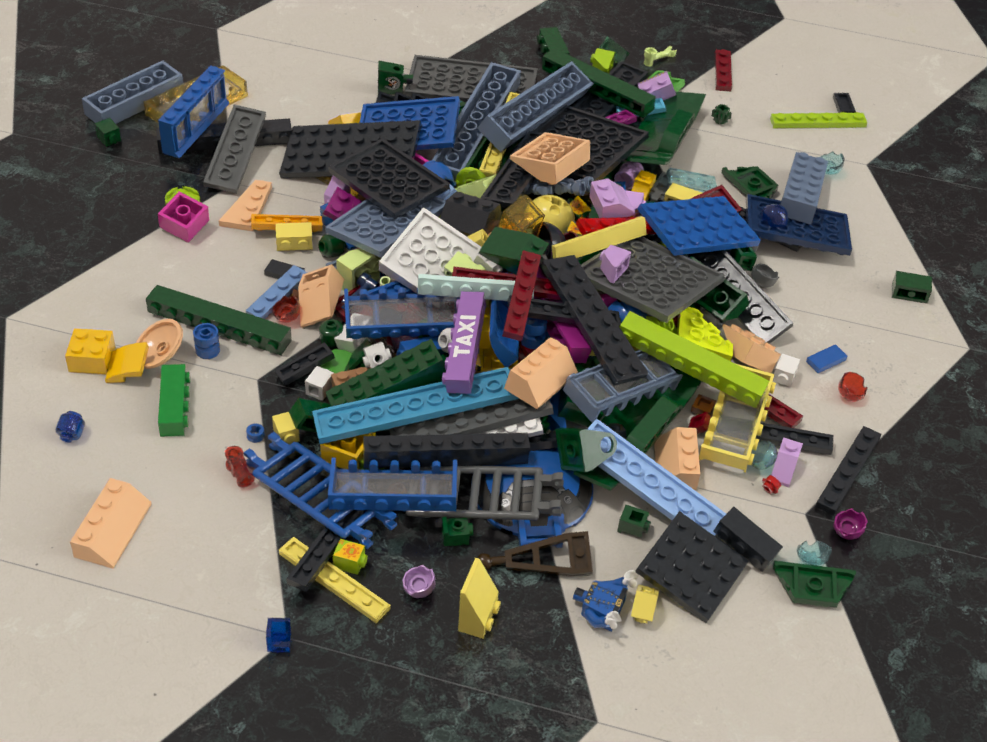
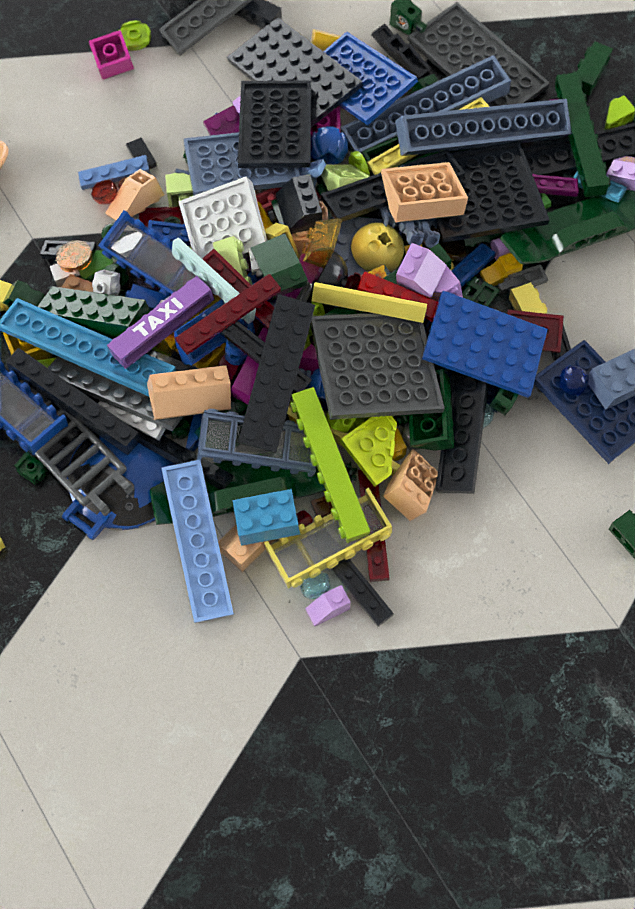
camera: 45 degrees right, 20 degrees up
(206, 341) = (21, 181): blue wheel -> none
(229, 322) = (50, 168): dark green brick -> none
(249, 203) = (171, 76): light nougat wing -> none
(268, 221) = (180, 108): light orange plate -> none
(294, 236) = (176, 126): light yellow brick -> none
(321, 359) = (74, 256): none -> clear orange tile
(366, 282) = (163, 215): dark blue brick -> none
(578, 556) = (91, 554): dark brown plate -> none
(581, 448) = (162, 477): dark green hose -> none
(605, 600) = (67, 607): blue torso -> none
(614, 262) = (348, 334): lavender slope -> none
(634, 521) = (159, 555): dark green brick -> none
(644, 603) = (96, 629): light yellow slope -> none
(687, 424) = (266, 517): none -> dark azure brick
(691, 179) = (555, 290): clear light blue plate -> none
(692, 566) = (157, 631): black plate -> none
(747, 539) = (220, 643): black brick -> none
(751, 181) = (612, 330): dark green wing -> none
(764, 275) = (511, 427): dark grey hair -> none
(771, 484) = (297, 614): red plate -> none
(786, 370) = (425, 527): white brick -> none
(814, 554) = (259, 695): clear light blue hair -> none
(814, 583) = (235, 719): dark green wing -> none
(826, 358) = (476, 542): blue tile -> none
(848, 470) = (376, 650): black plate -> none
(850, 524) = (315, 695): magenta hair -> none
(852, 387) = (461, 584): clear red hair -> none

